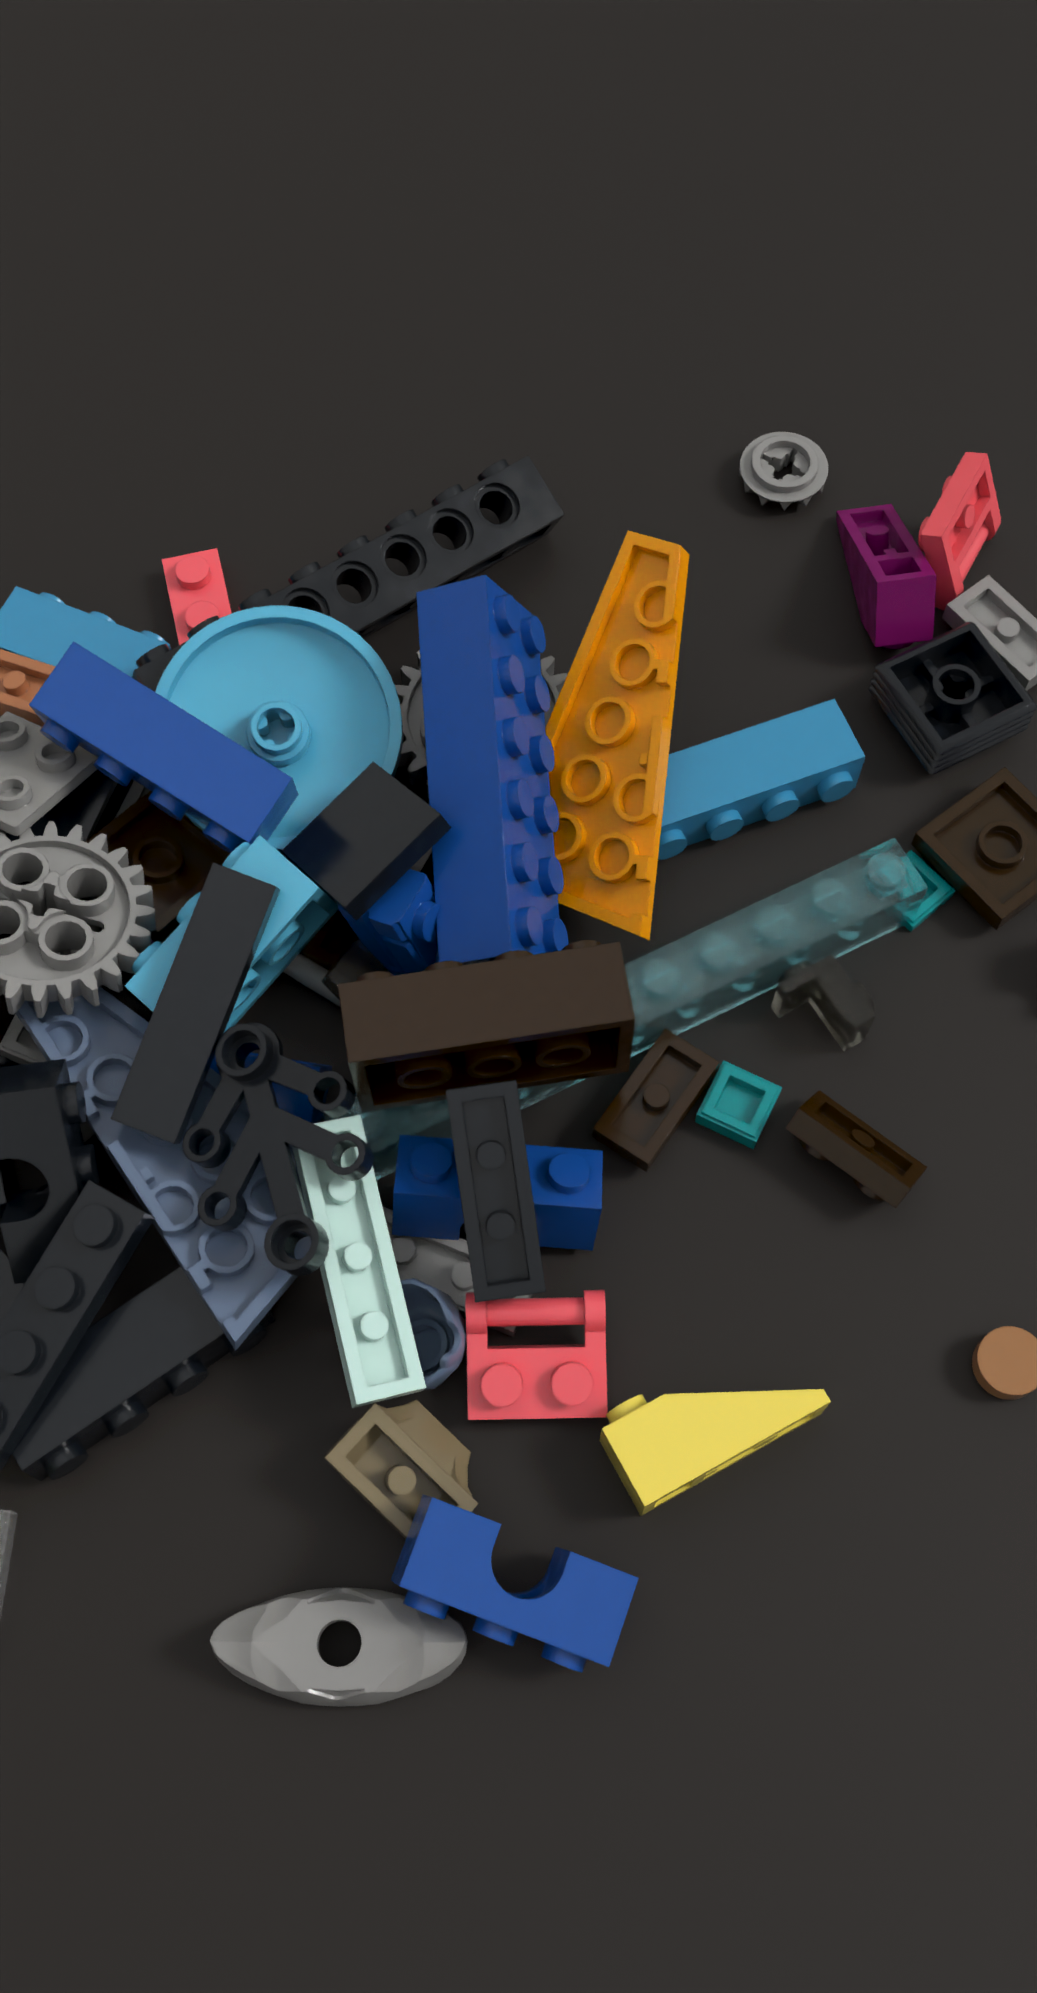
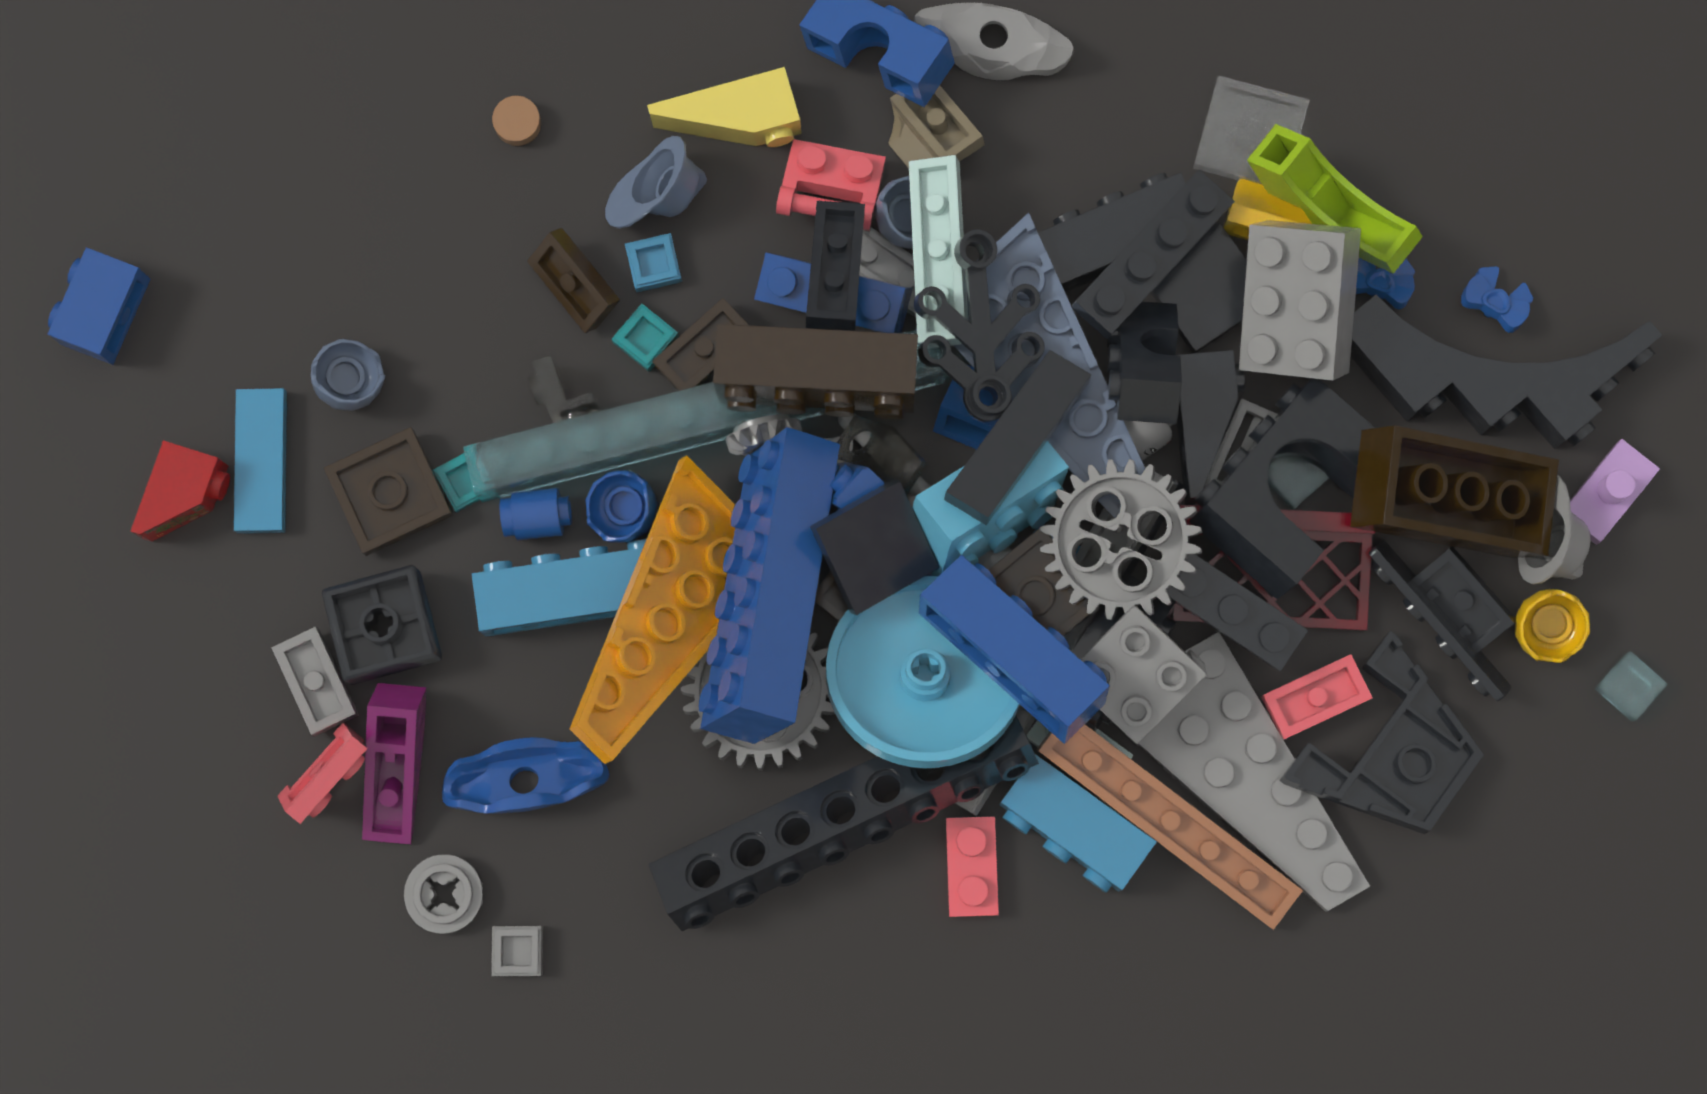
camera: 165 degrees left, 15 degrees up
(686, 439) = (517, 950): none -> light grey tile
(704, 878) = (621, 506): none -> blue hair
(756, 1205) = (653, 262): none -> dark azure tile
(770, 565) = (485, 779): none -> blue piece
(785, 1296) = (657, 185): none -> sand blue piece
(808, 850) = (535, 514): none -> blue brick

